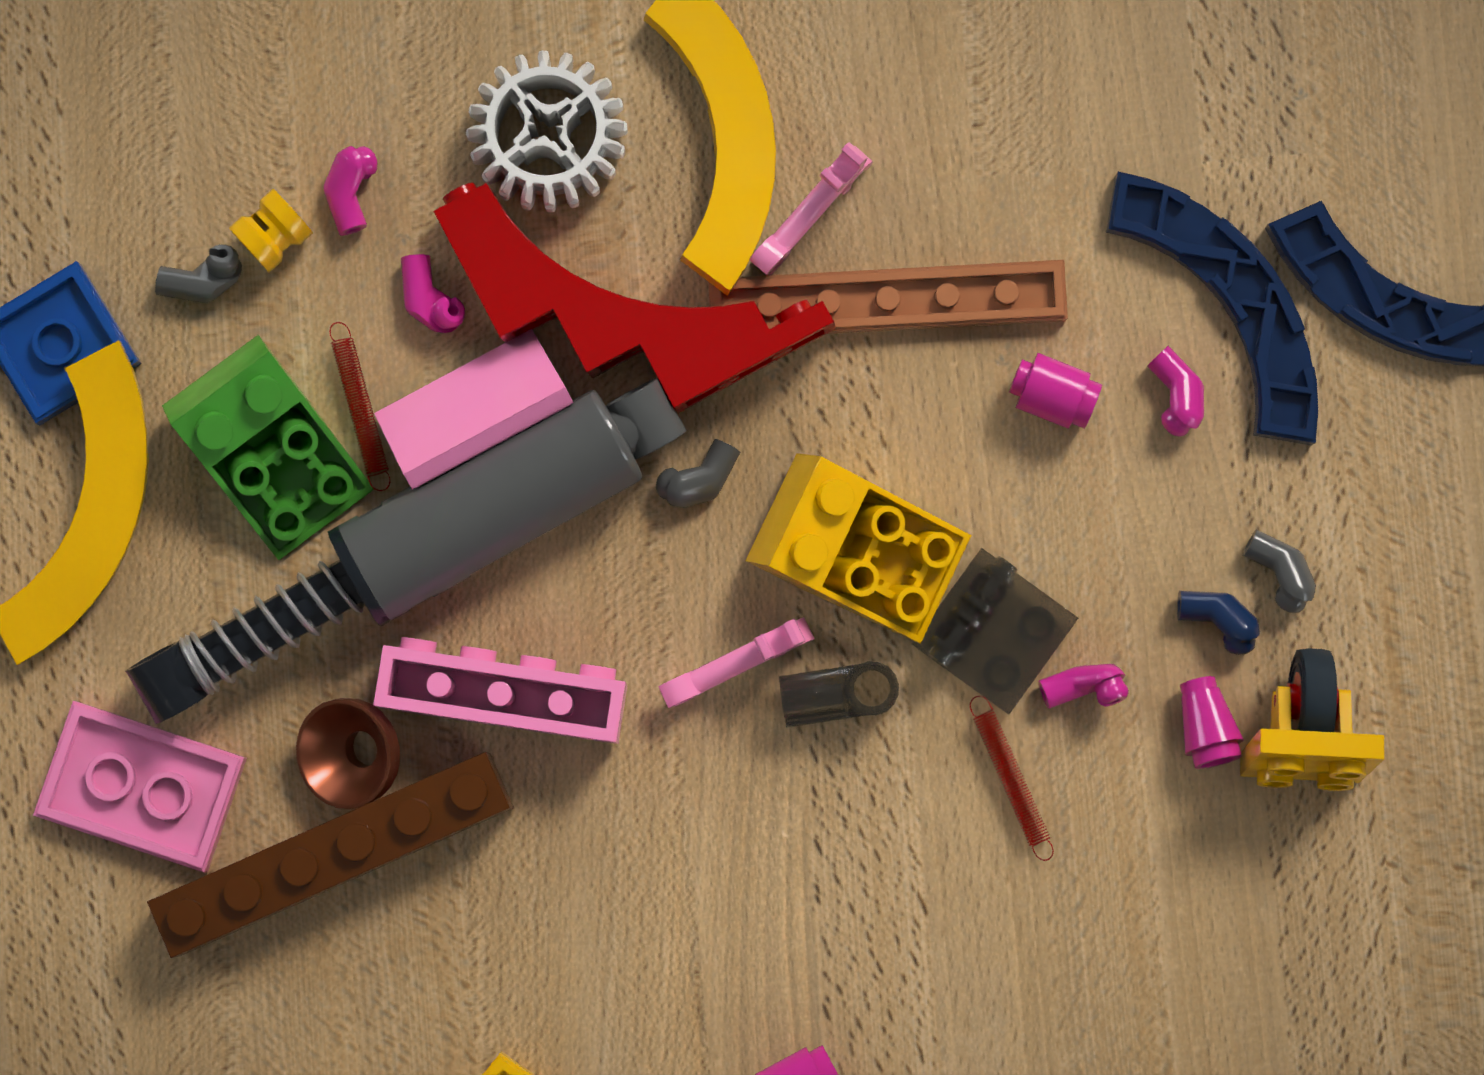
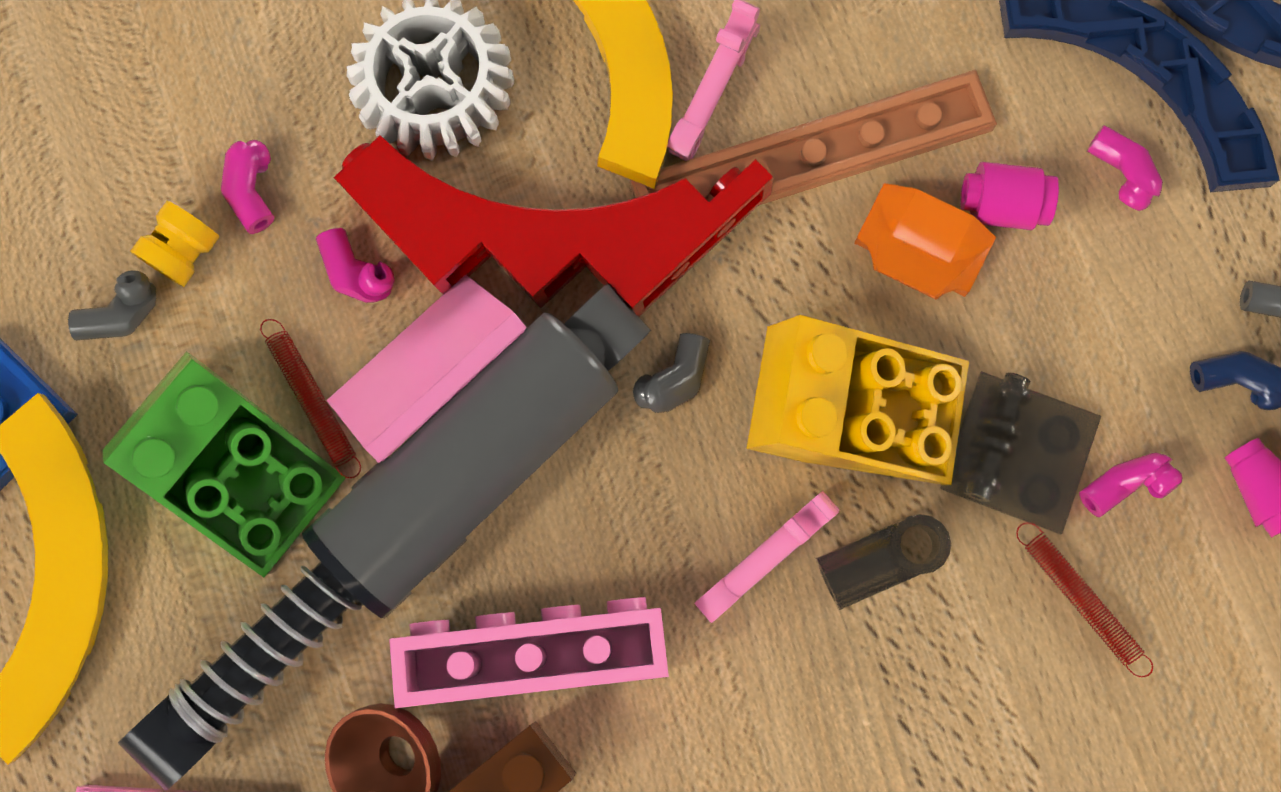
camera: 10 degrees left, 5 degrees down
(962, 415) = (924, 241): none -> orange slope

